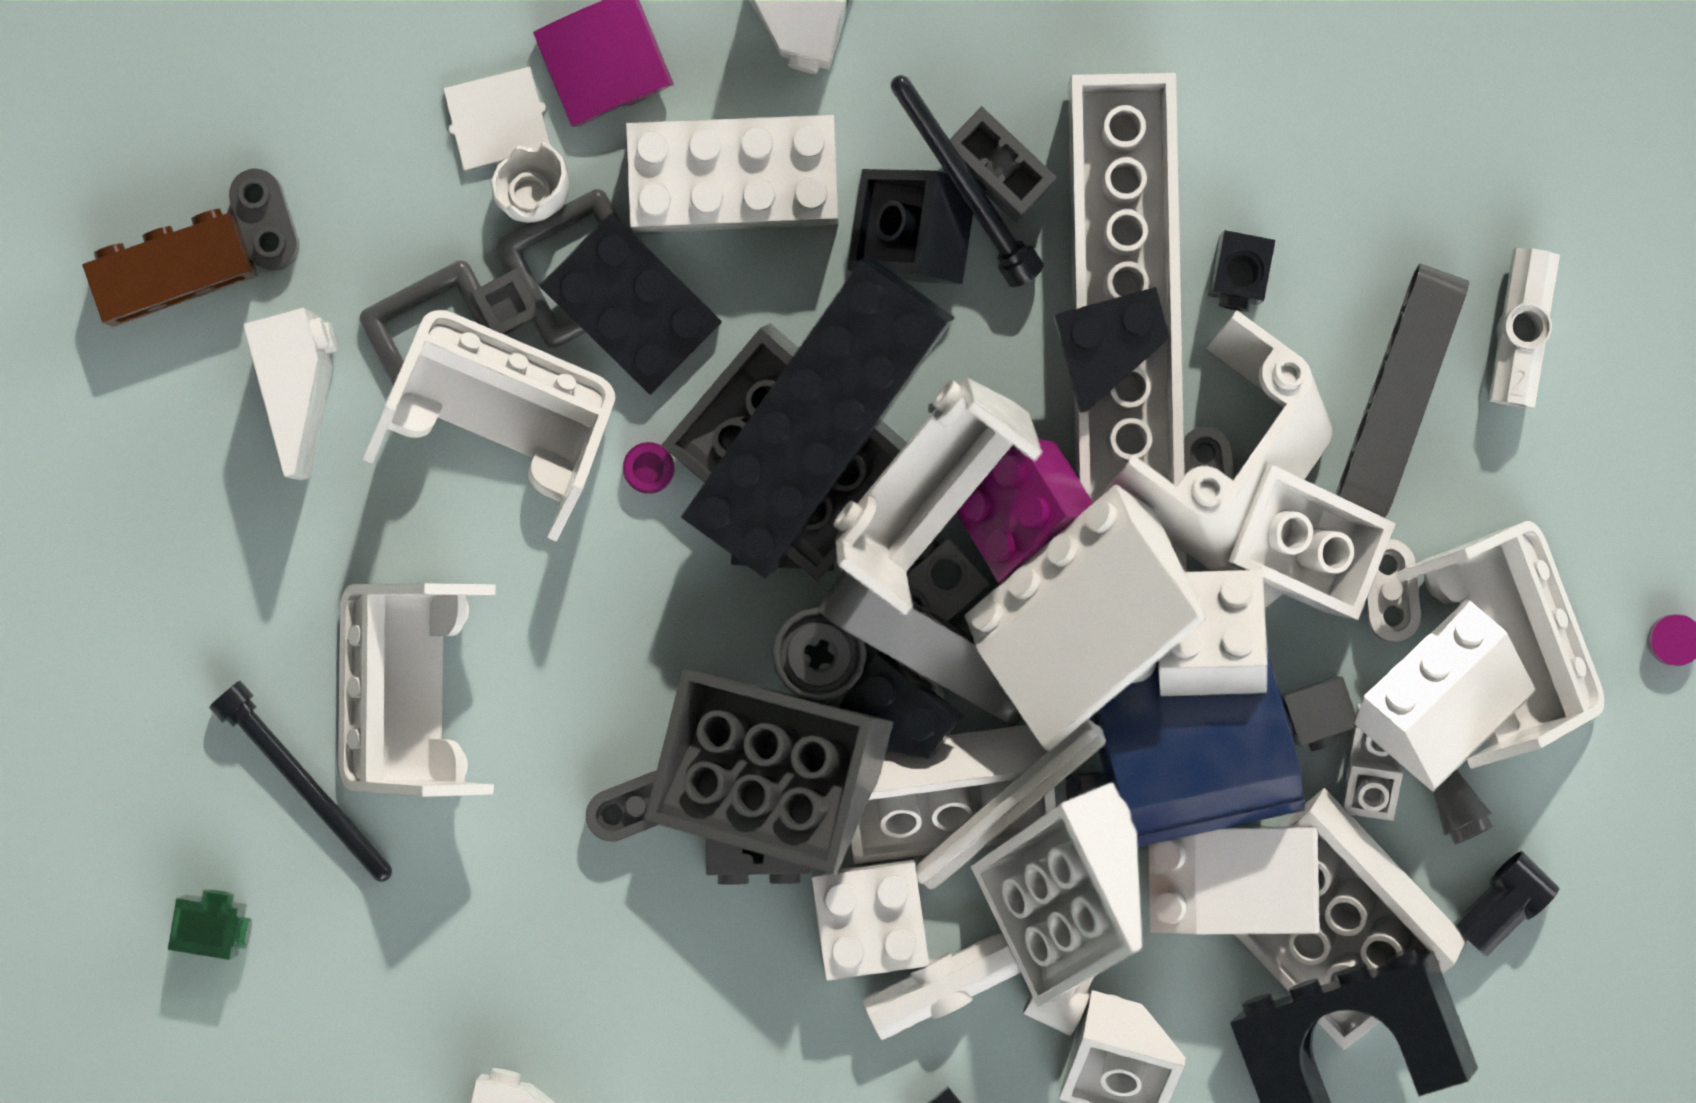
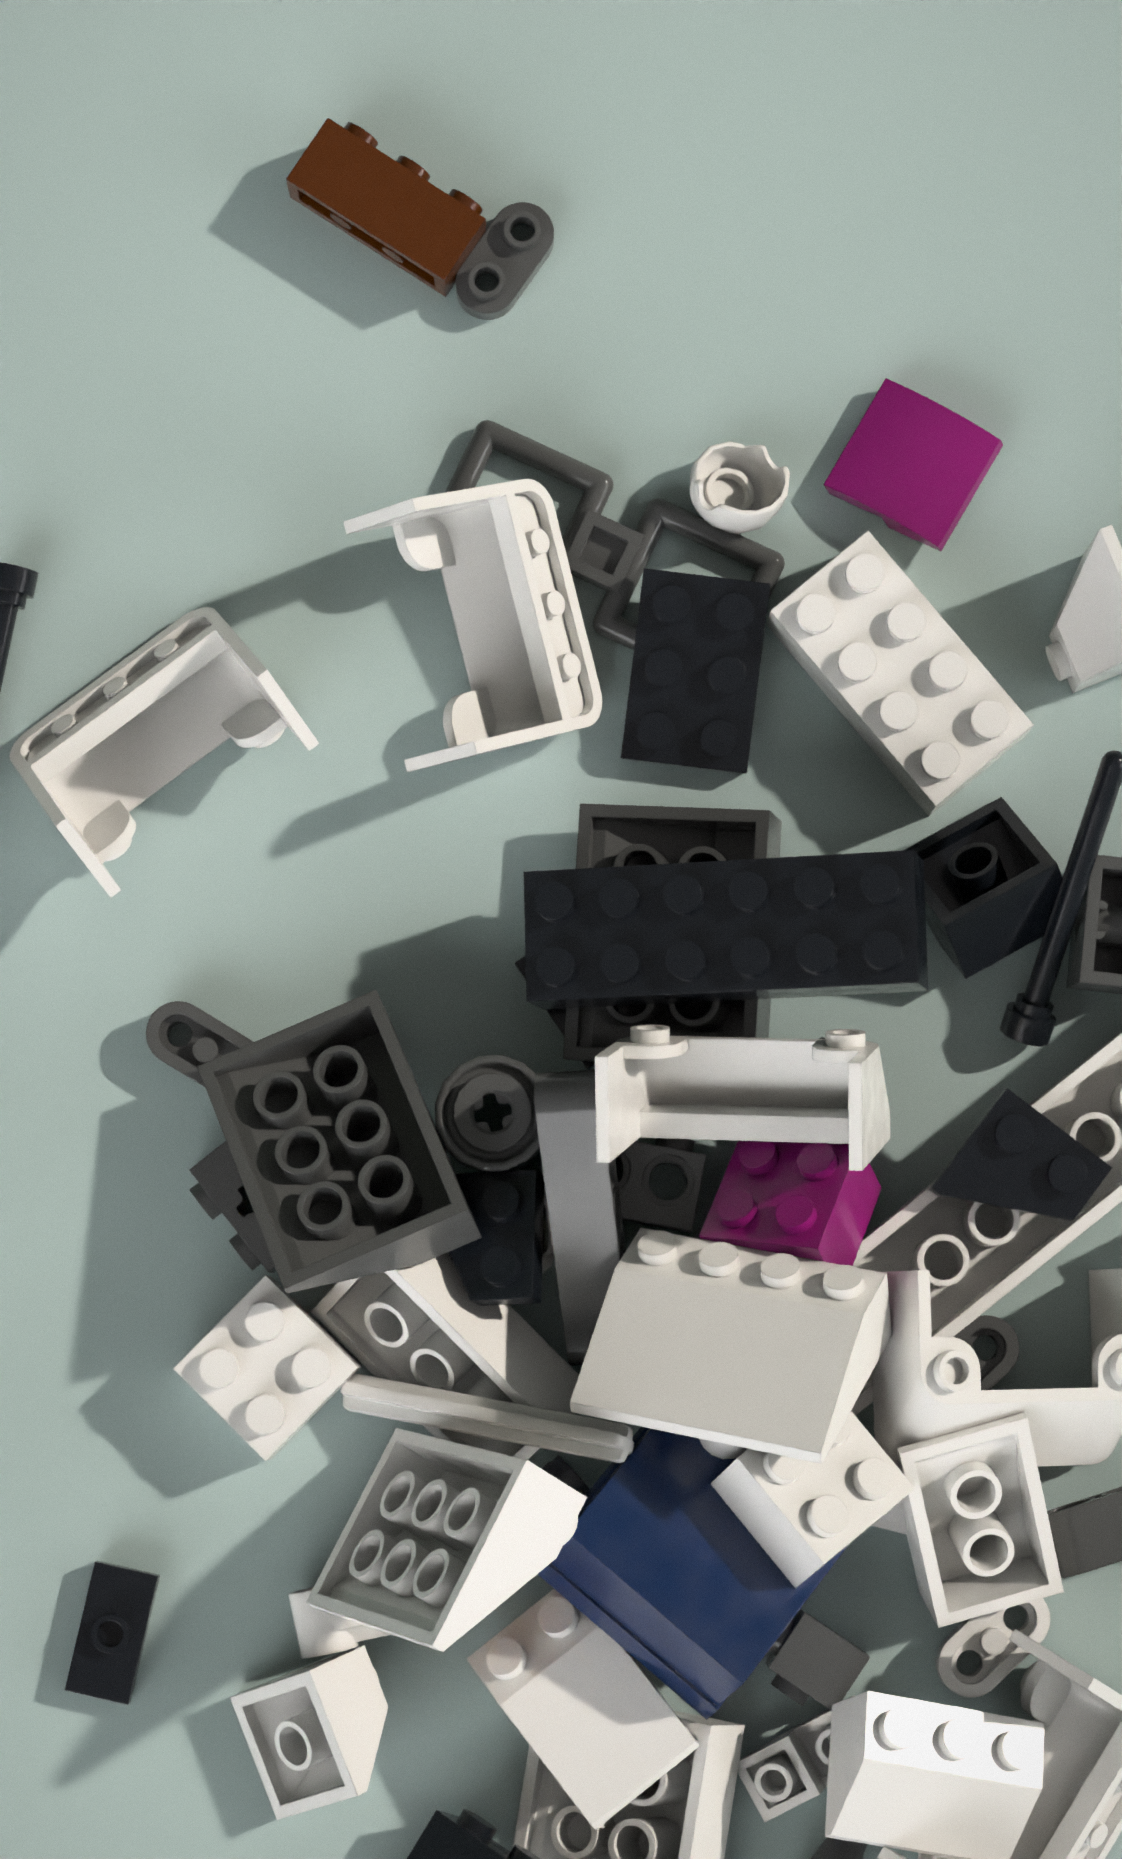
camera: 50 degrees right, 5 degrees down
(294, 379) = (370, 403): white slope -> none
(495, 117) = (775, 405): white piece -> none
(648, 468) = (548, 811): magenta tile -> none
(942, 986) = (254, 1490): white piece -> none

